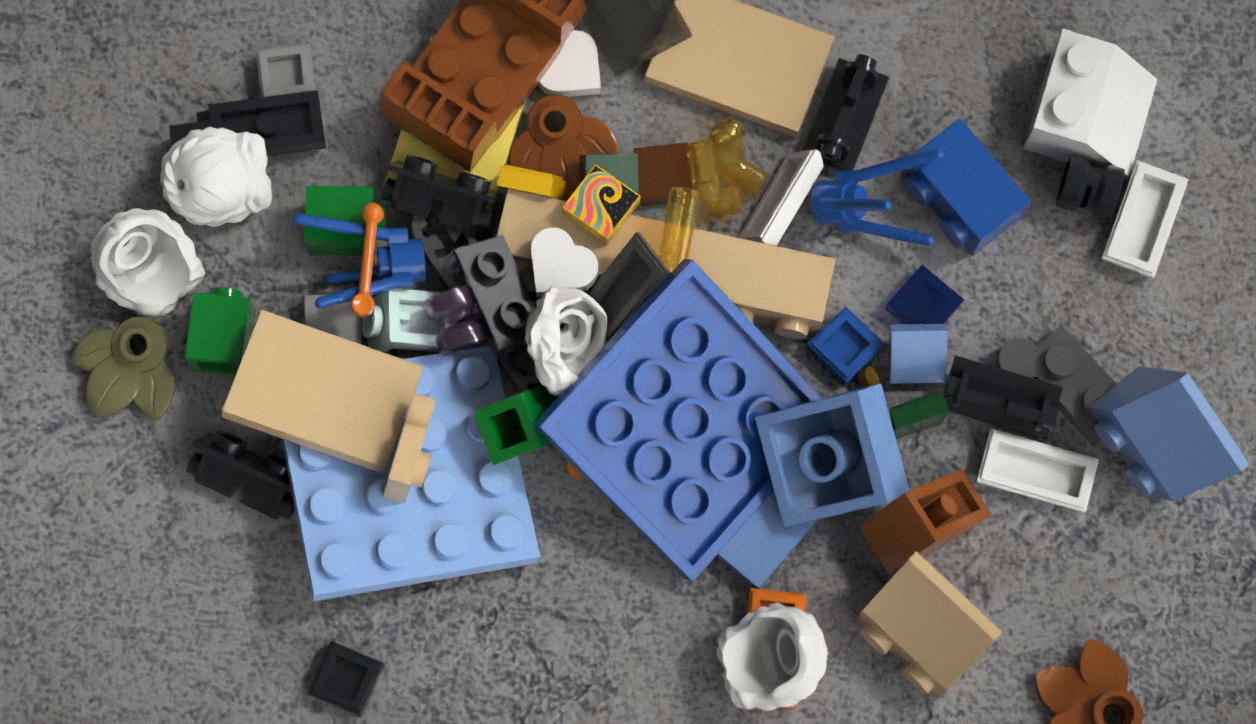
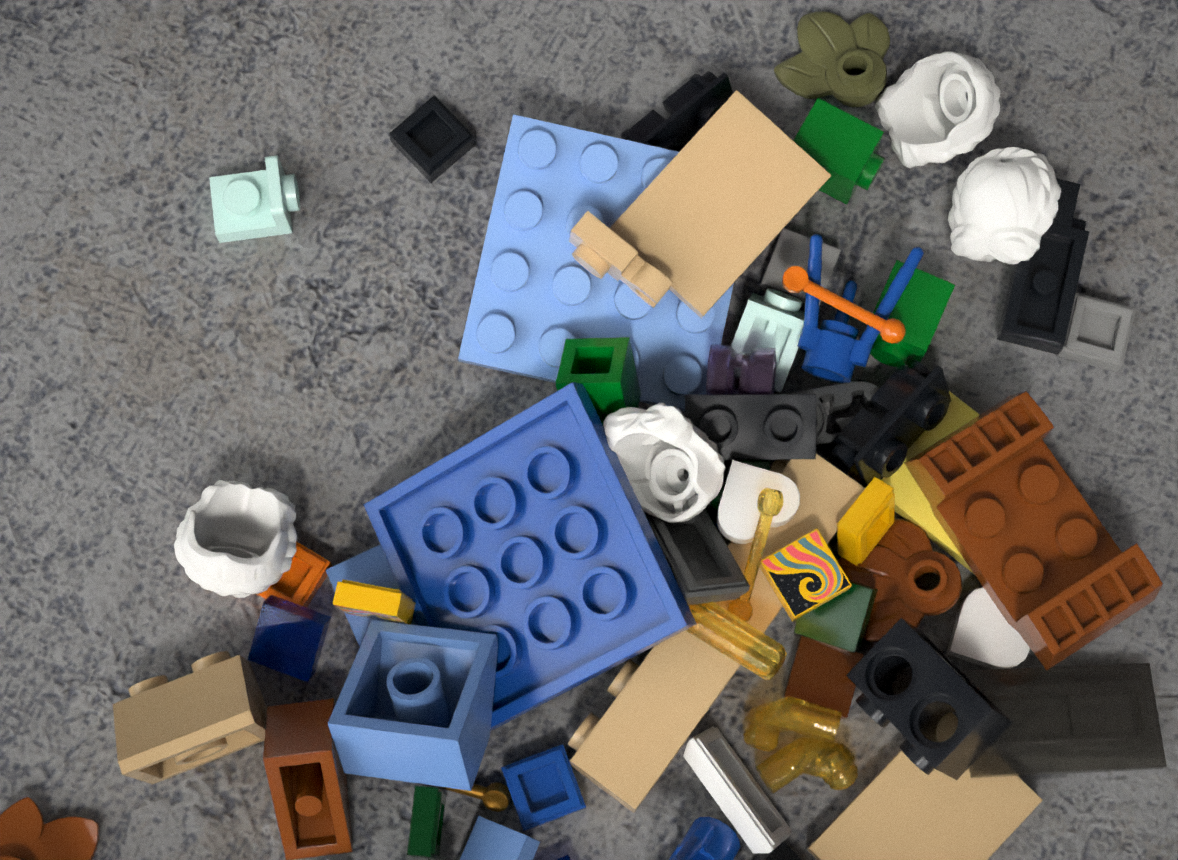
camera: 120 degrees right, 0 degrees up
(563, 244) = (769, 505): none -> clear yellow hinge
(639, 77) = (934, 691): none -> black brick
(772, 525) = (374, 602): none -> yellow tile
(826, 588) = (289, 638): none -> clear blue tile

